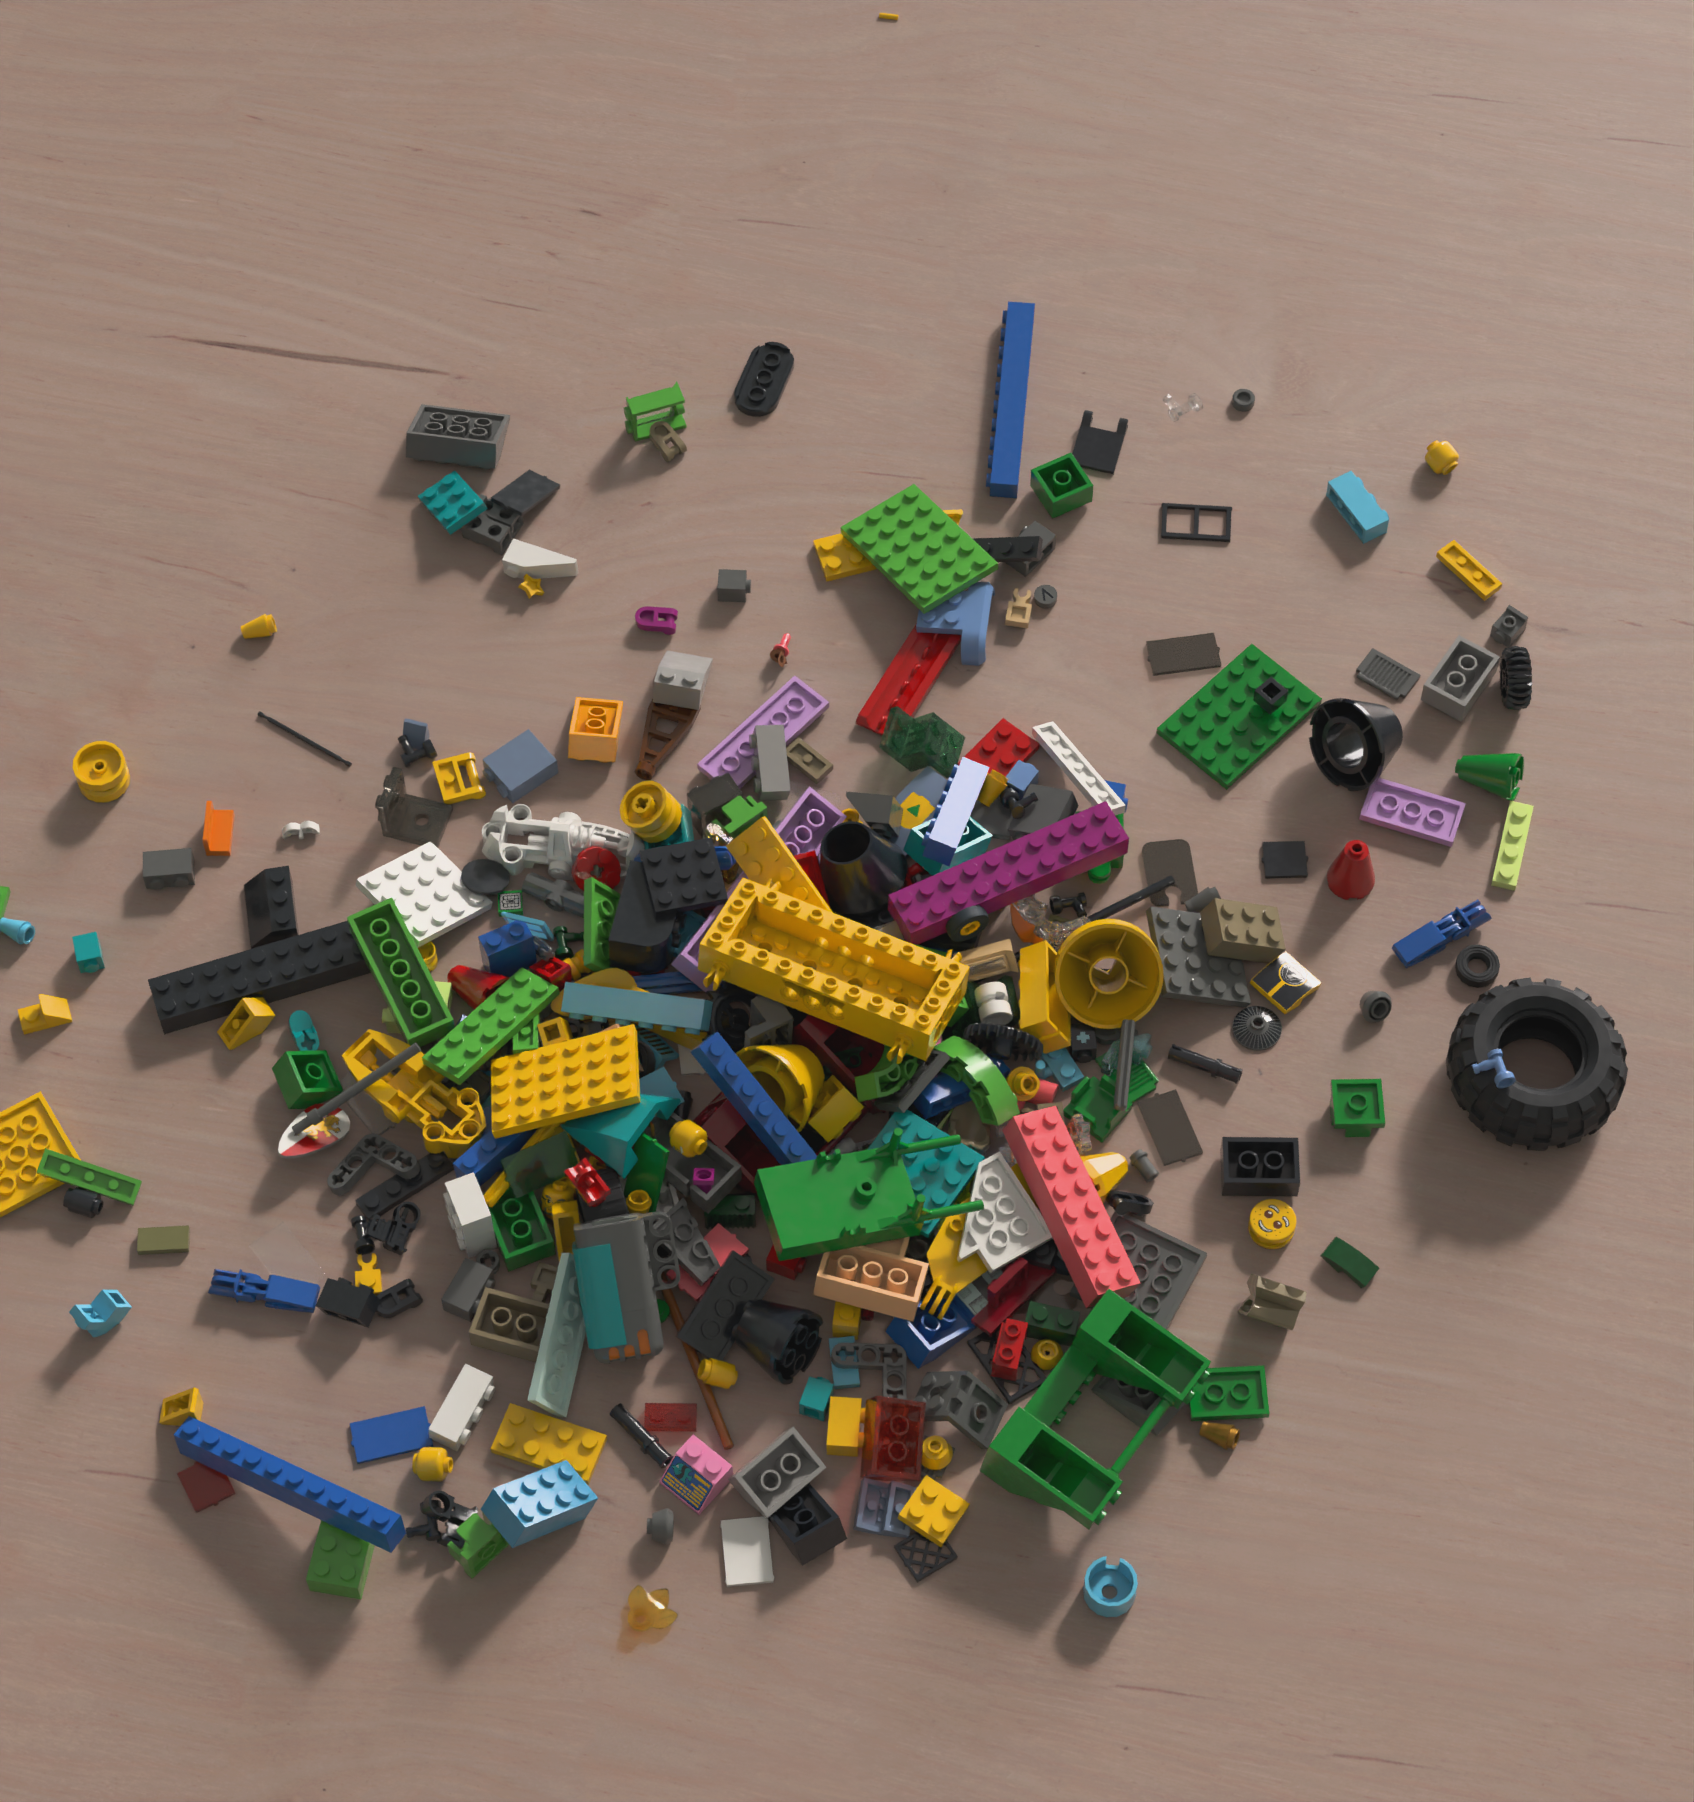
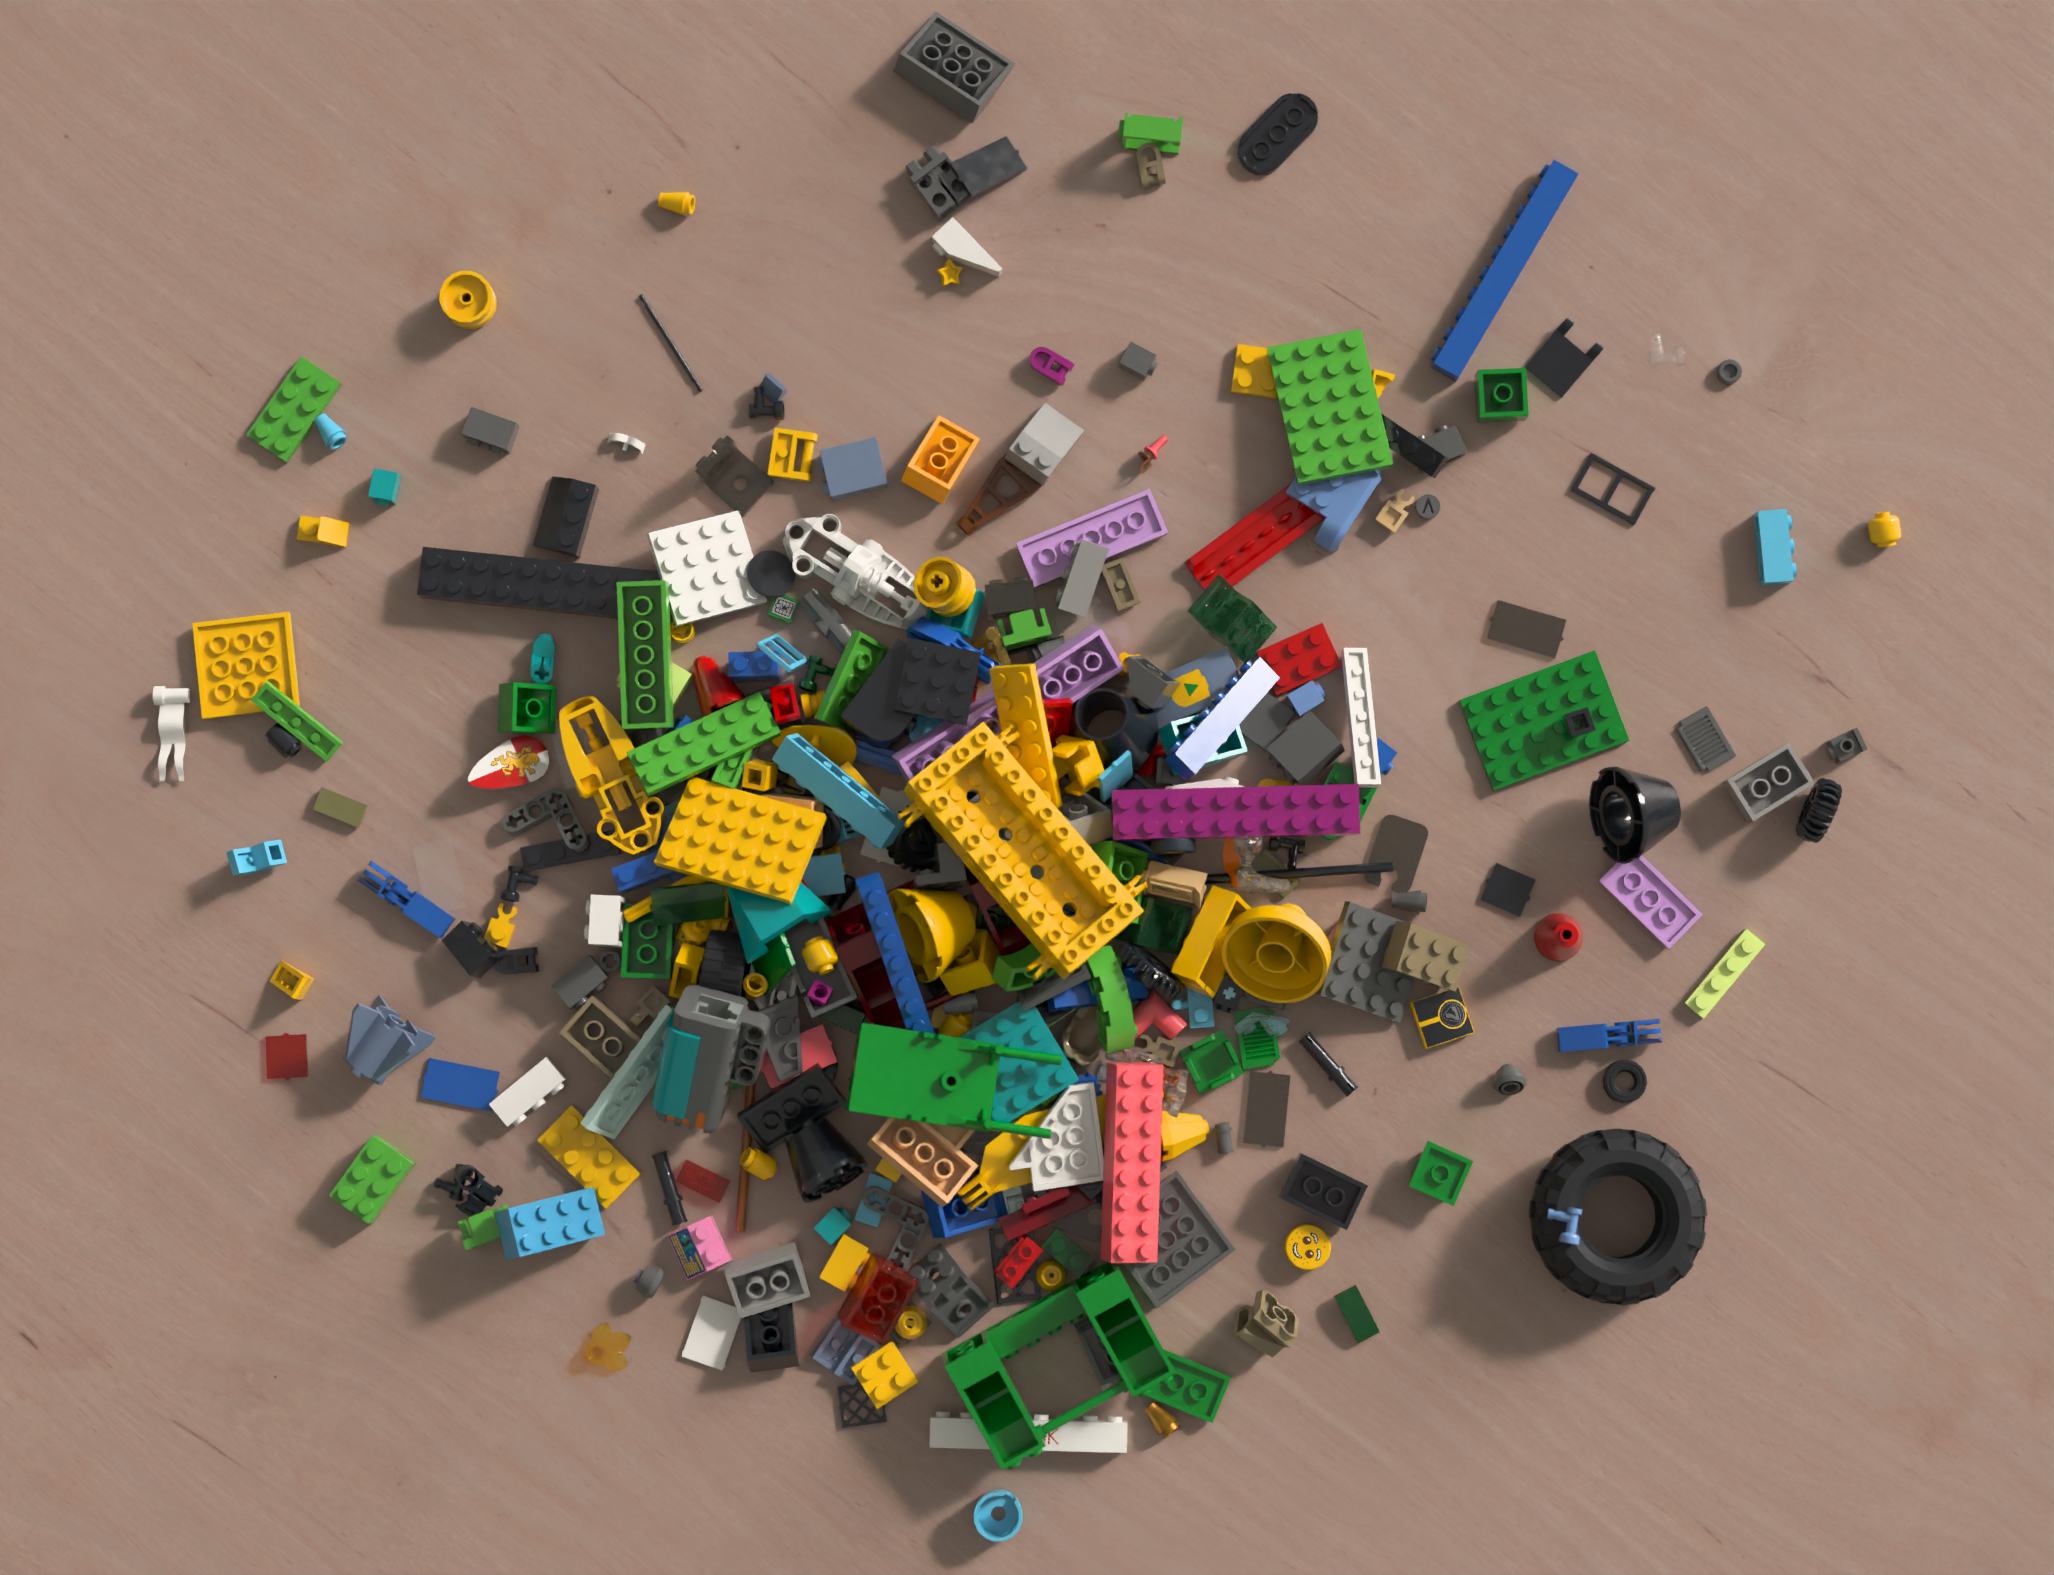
camera: 25 degrees right, 25 degrees up
(218, 831) = (551, 409): orange panel -> none
(245, 1022) = (496, 624): yellow slope -> none
(290, 1484) = (348, 1105): blue brick -> none
(297, 1416) = (381, 1041): none -> sand blue brick
(316, 1115) = (514, 759): dark grey bar -> none
(394, 1231) = (540, 897): black piece -> none
(432, 1464) = (481, 1132): yellow head -> none
(452, 502) = (913, 147): teal plate -> none
(543, 949) = (788, 679): dark grey axle -> none
(588, 1183) = (711, 959): red hips -> none
(602, 858) = (883, 610): red plate -> none
(848, 895) = (1078, 760): none -> yellow panel
(882, 885) = (1115, 776): none -> medium azure piece
(992, 787) = (1275, 698): yellow cone -> none
(993, 1003) = (1159, 933): white wheel -> none
(1010, 799) = (1284, 716): black piece -> none
(1023, 1083) = (1152, 1016): yellow piece -> none
(1124, 1065) = (1249, 1042): dark grey axle -> none
(1129, 1202) = (1198, 1172): black plate -> none
(1140, 1486) = (1074, 1436): none -> white brick
(1254, 1036) = (1381, 1047): dish -> none
(1469, 570) = (1842, 665): yellow plate -> none
(1493, 772) = (1744, 896): green cone -> none

